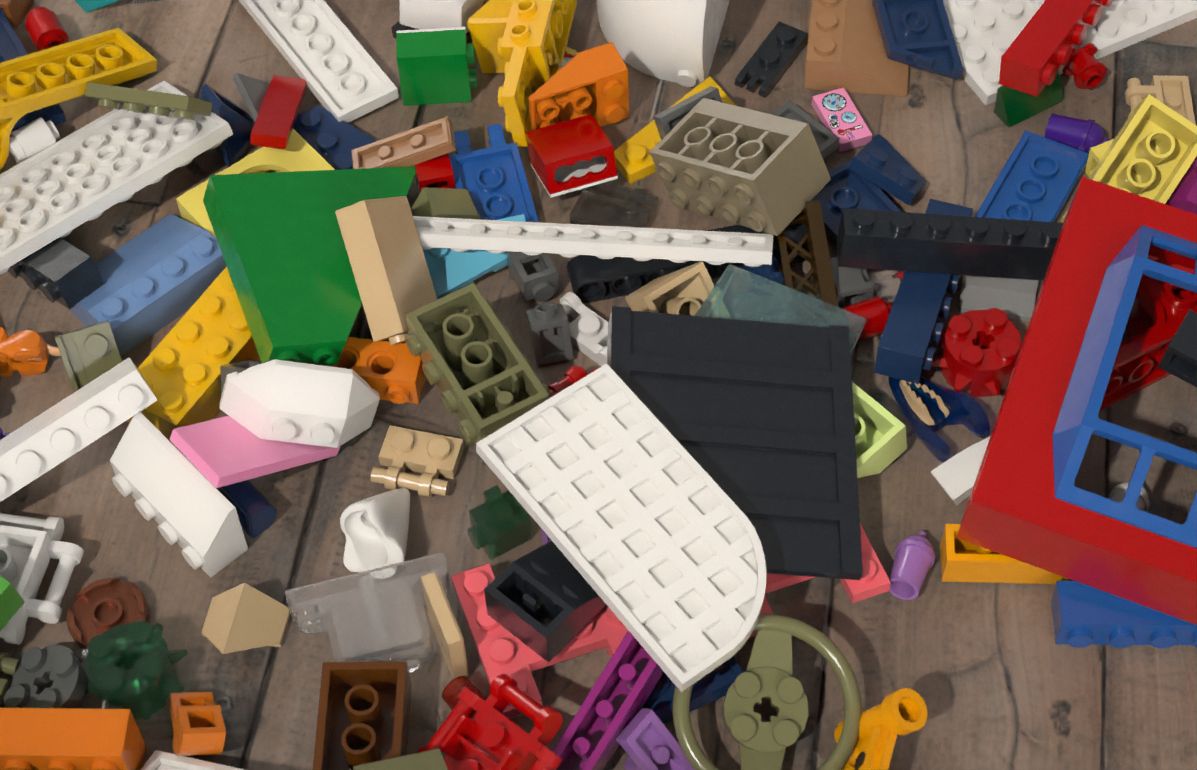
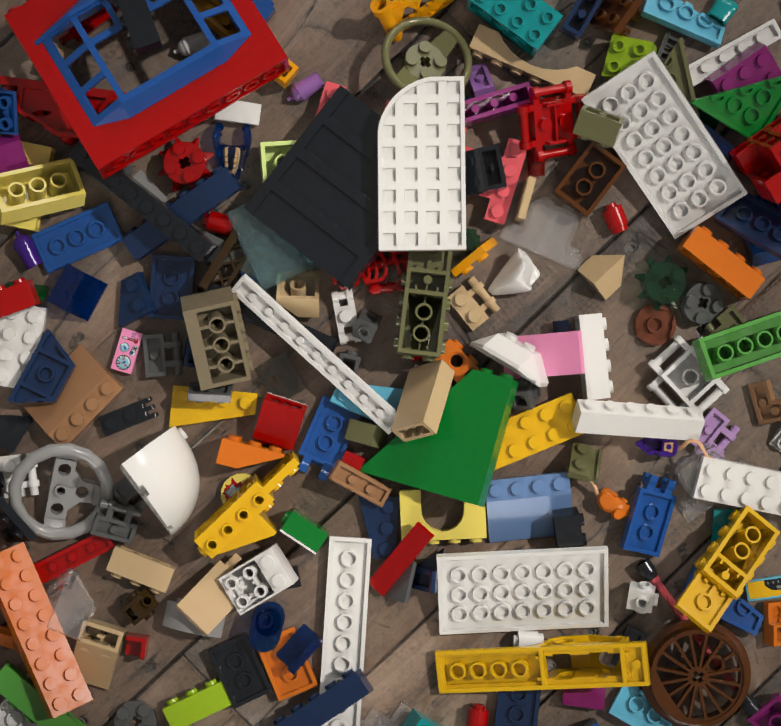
camera: 145 degrees left, 35 degrees up
(157, 102) = (462, 610): olive plate -> none
(196, 724) = (652, 236): orange brick -> none
(278, 713) = (615, 218): none -> red brick
(455, 509) = (477, 255): none -> light orange wing
(969, 131) = (77, 292): none -> clear blue slope

